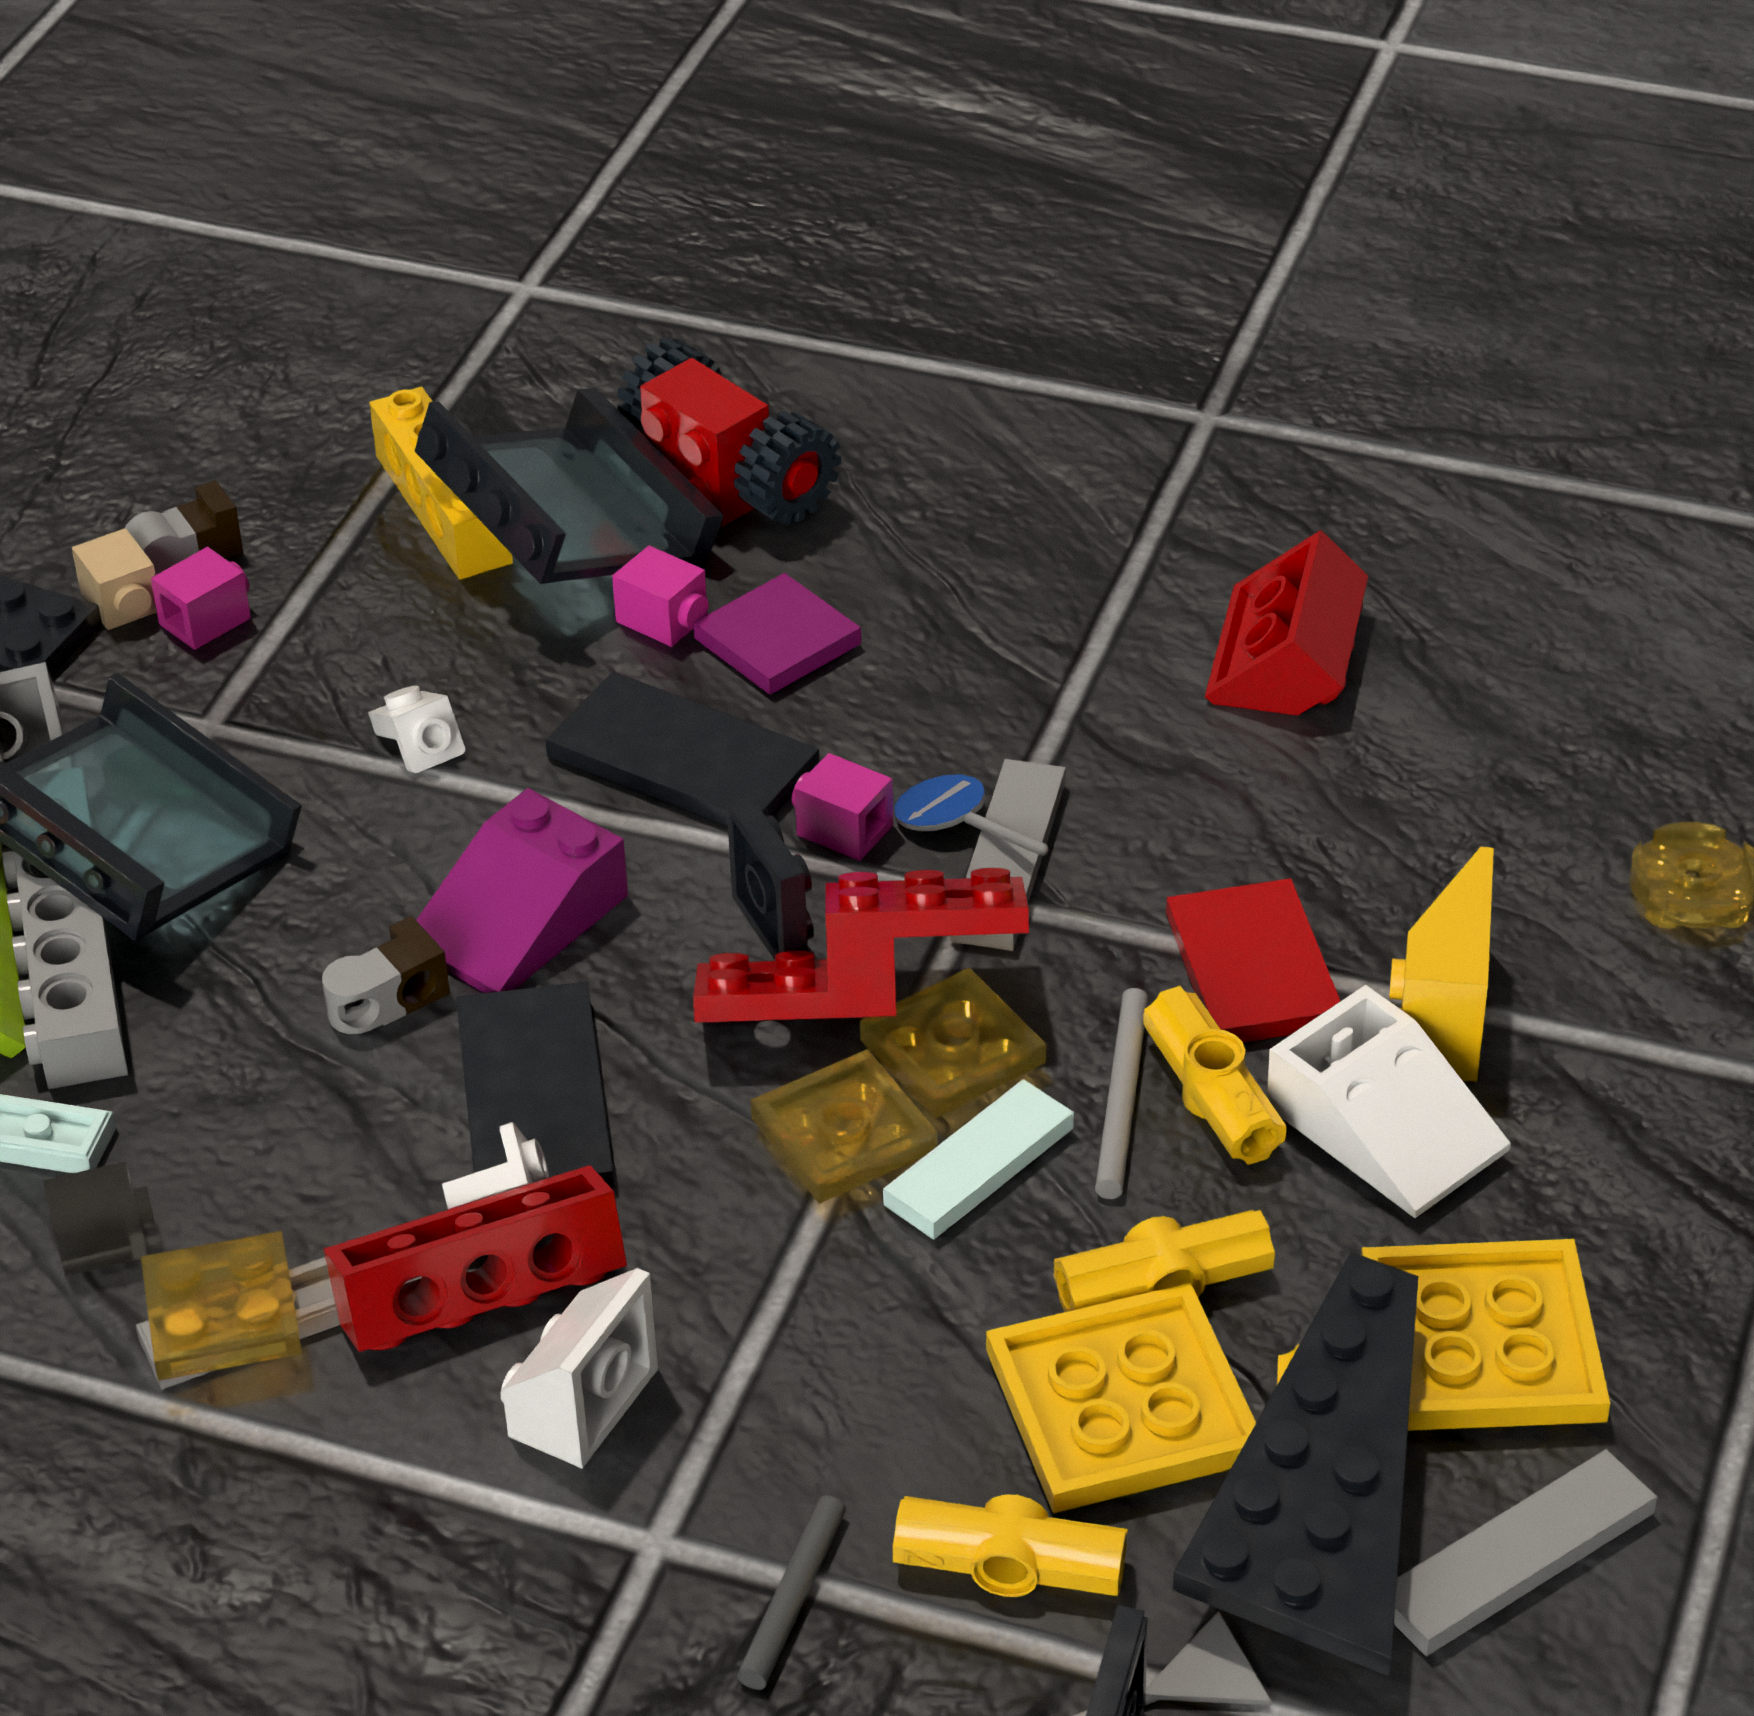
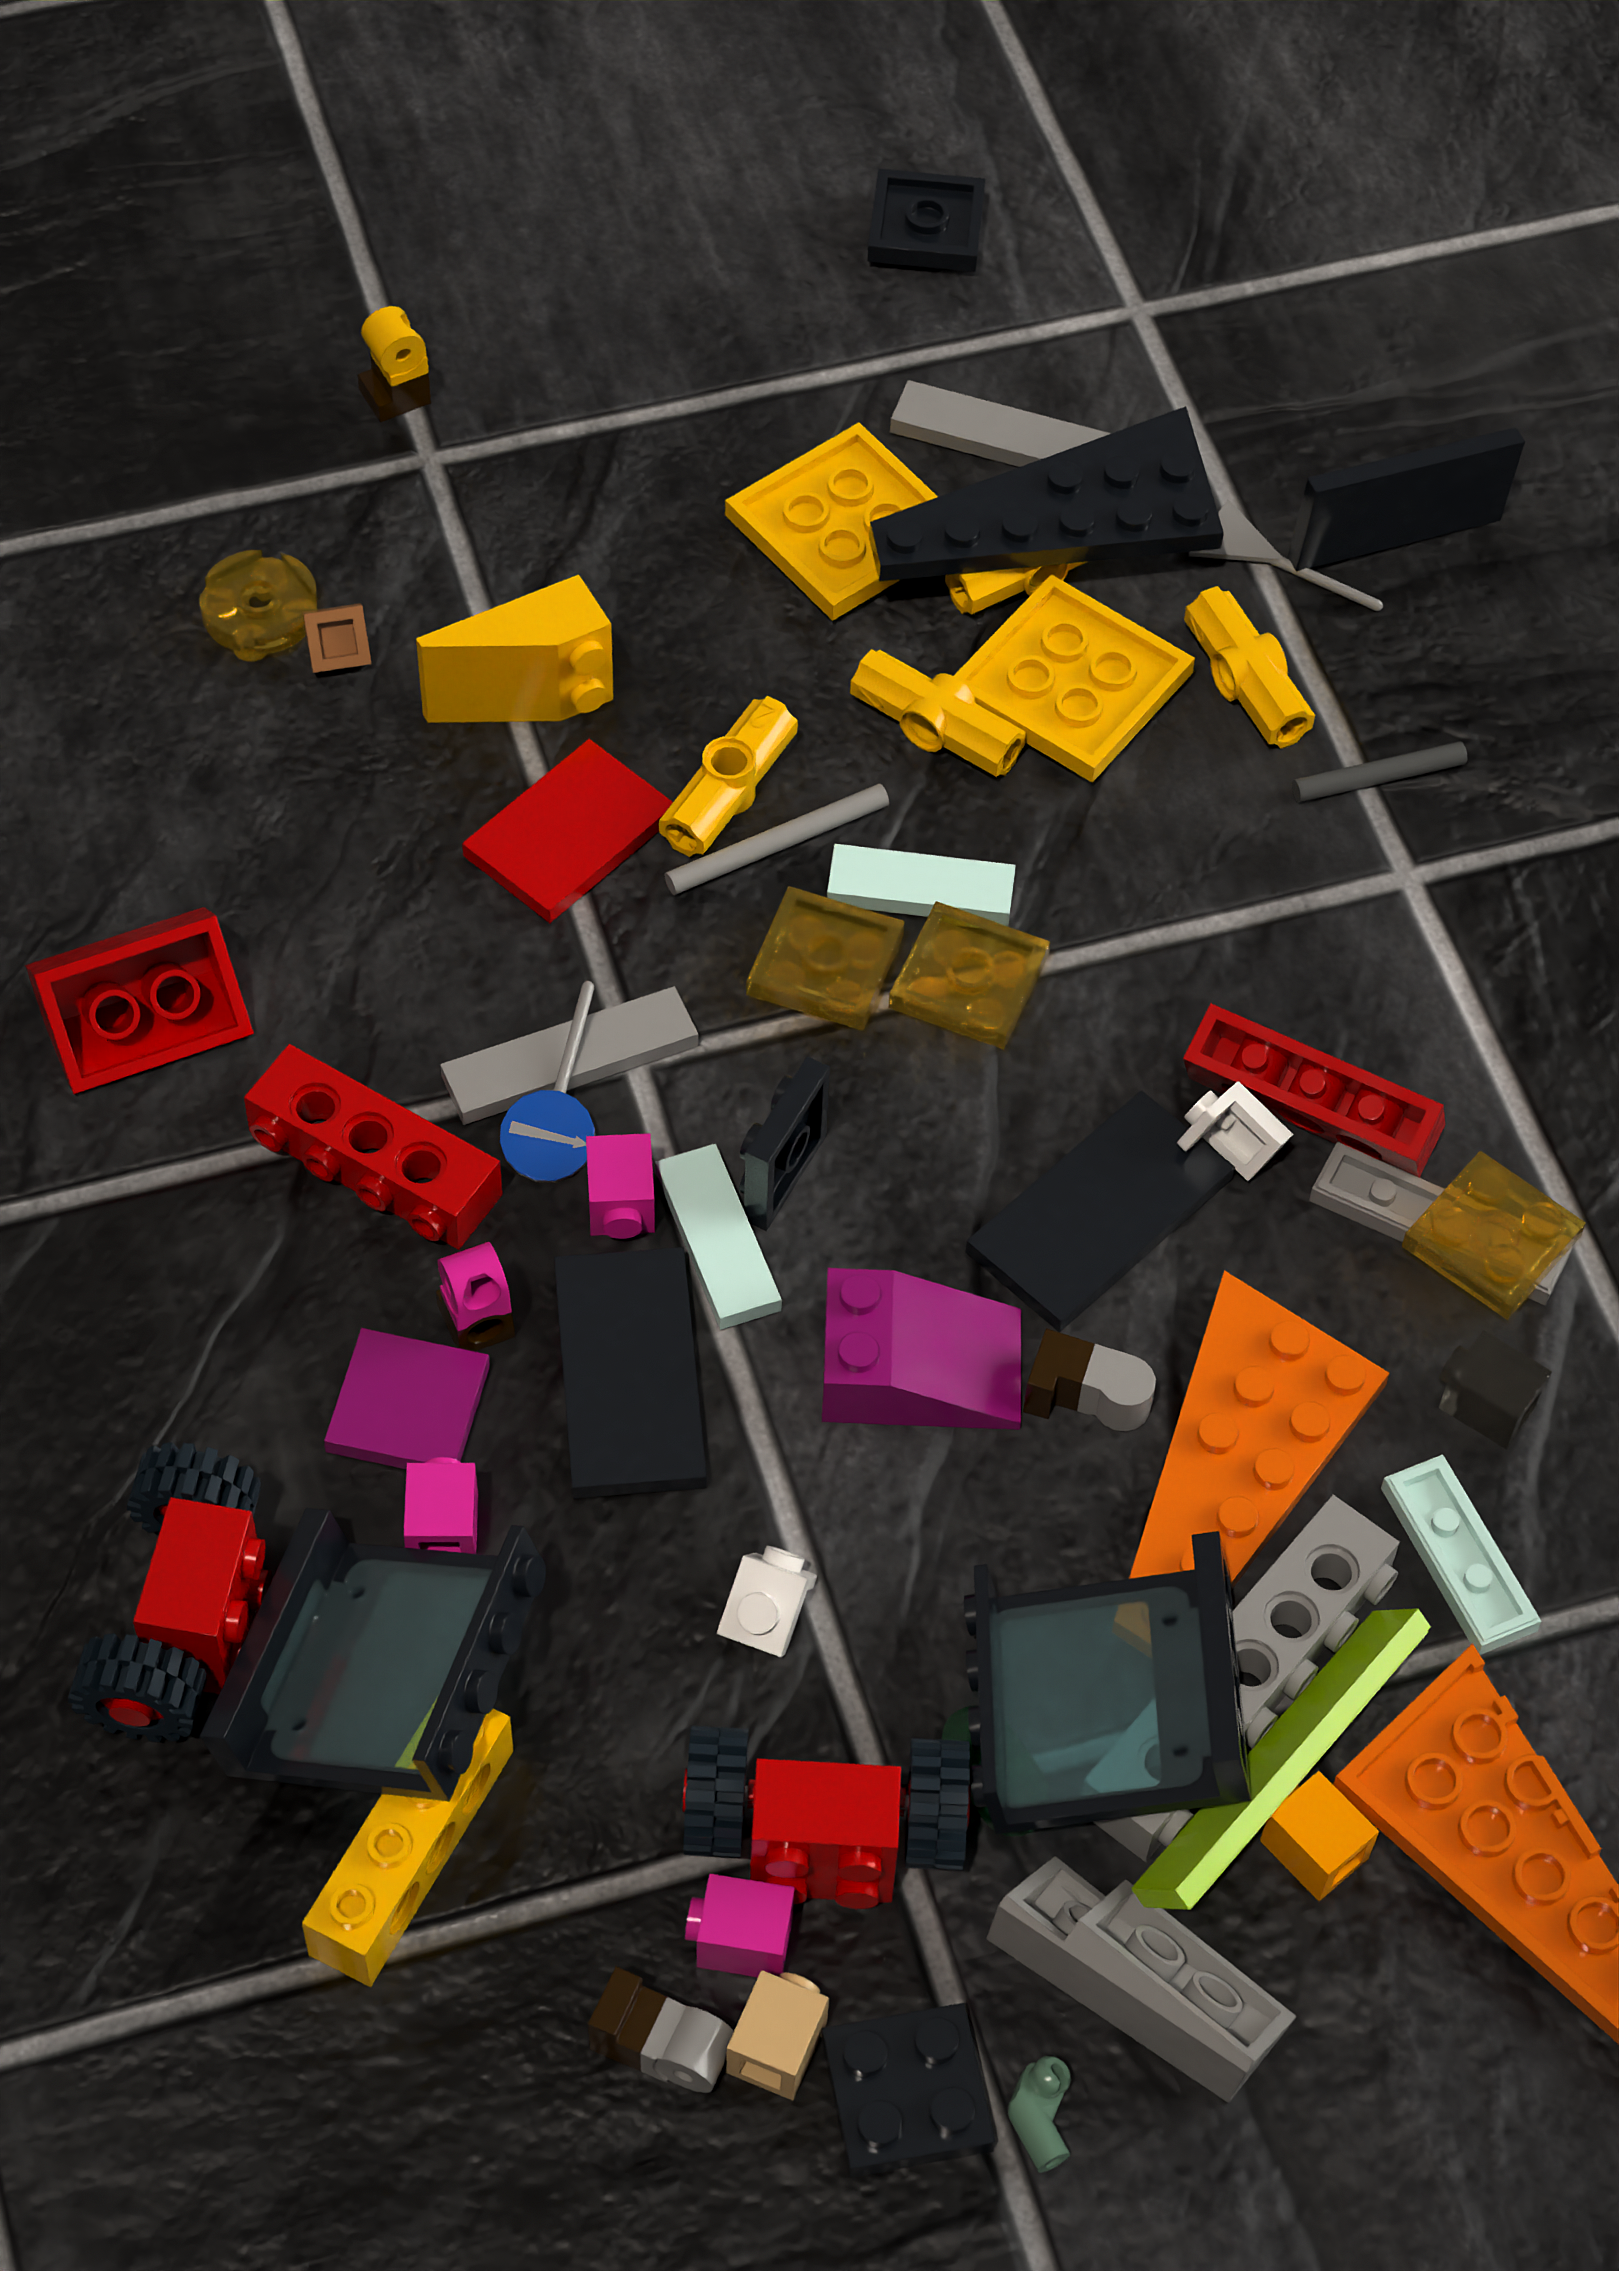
camera: 130 degrees left, 15 degrees up
(222, 627) = (825, 1822): none -> brick
(240, 1063) = (1253, 1430): none -> orange wing
(584, 1370) = (1345, 958): white slope -> none
(701, 848) = (718, 1236): none -> light aqua tile
(809, 675) = (472, 1293): none -> dark pink leg
(860, 937) = (814, 1004): red bracket -> none
(1016, 694) = (357, 1119): none -> red brick
(1383, 1101) = (678, 665): white slope -> none
(1604, 898) = (337, 637): none -> medium nougat plate

